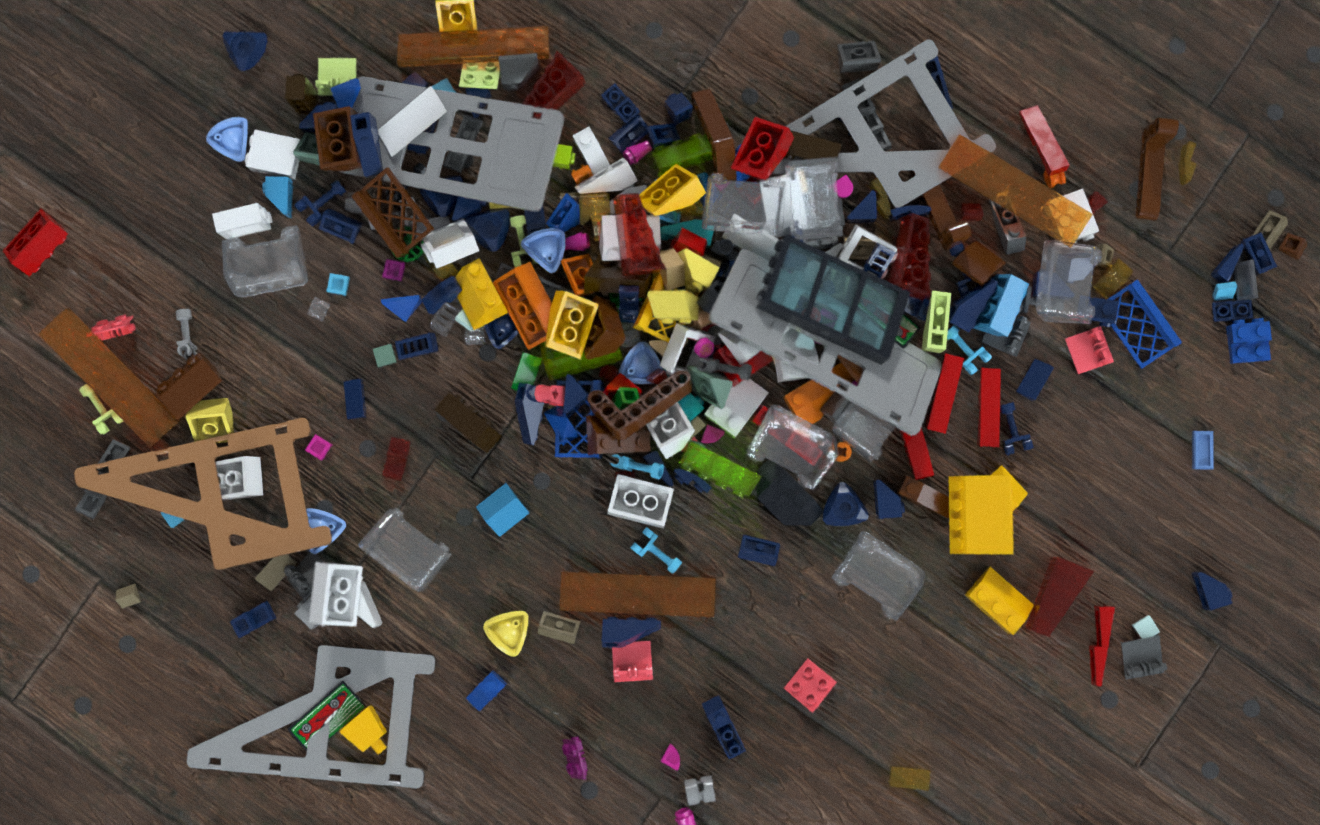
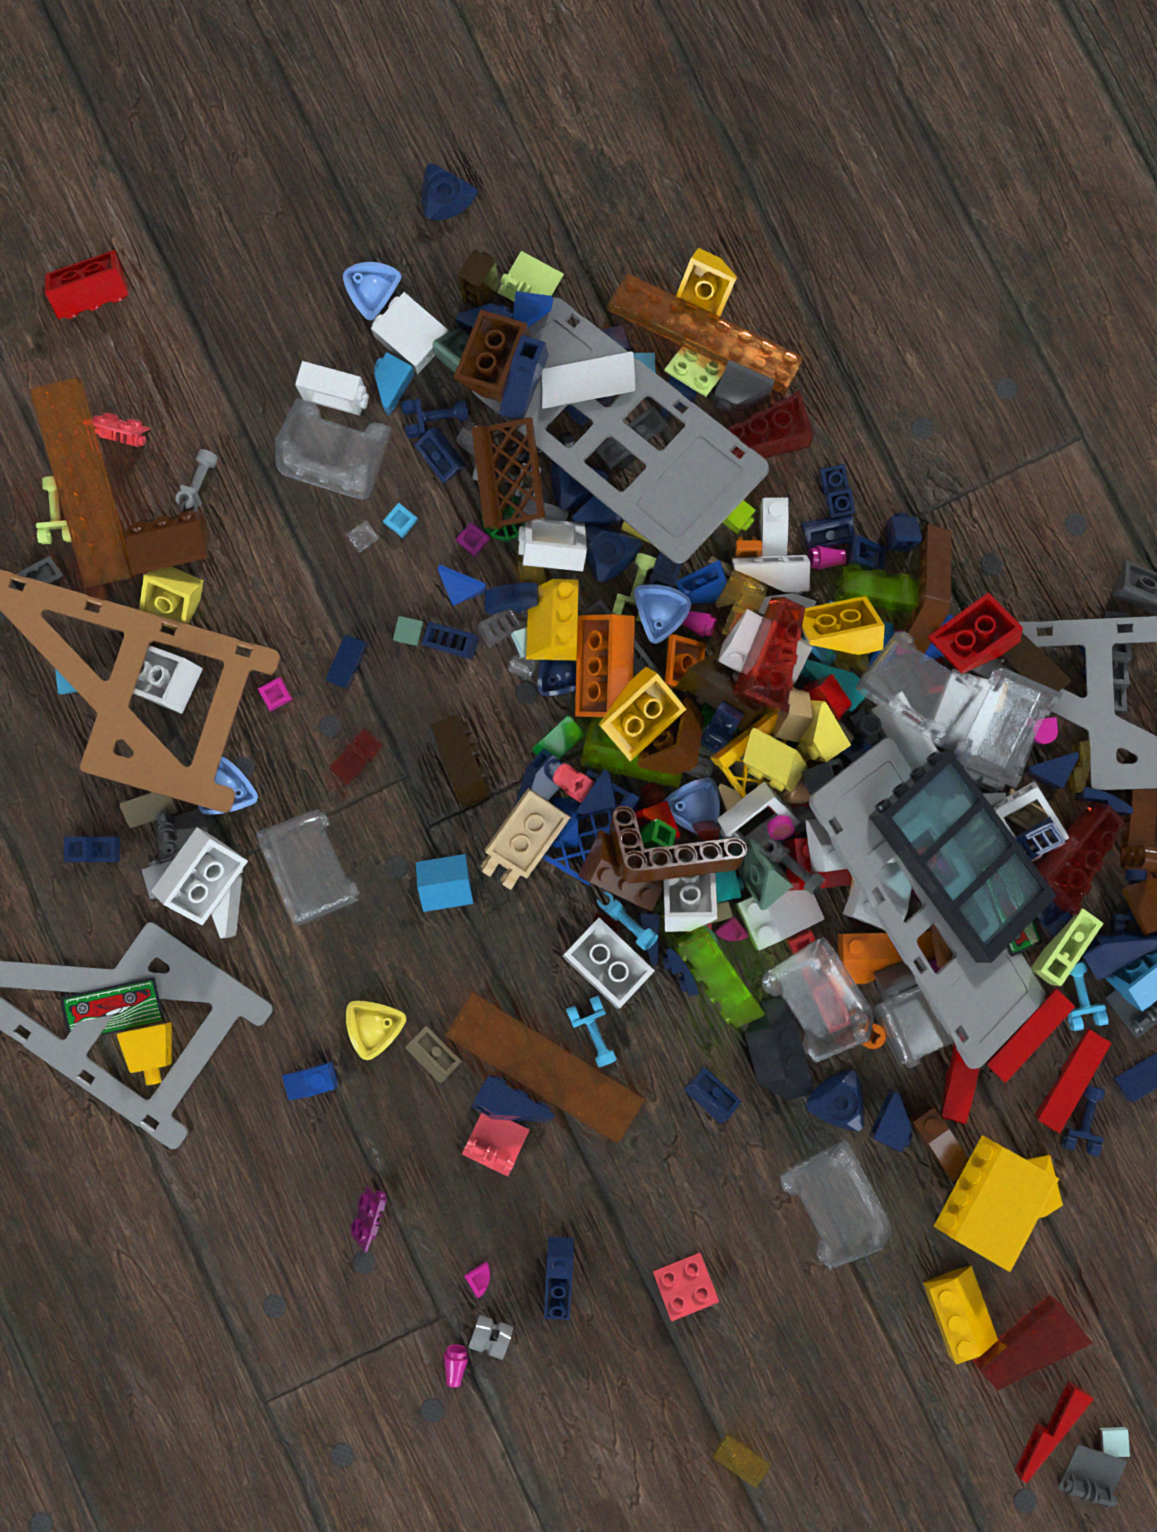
camera: 25 degrees right, 0 degrees up
(538, 449) = (524, 838): none -> tan tile

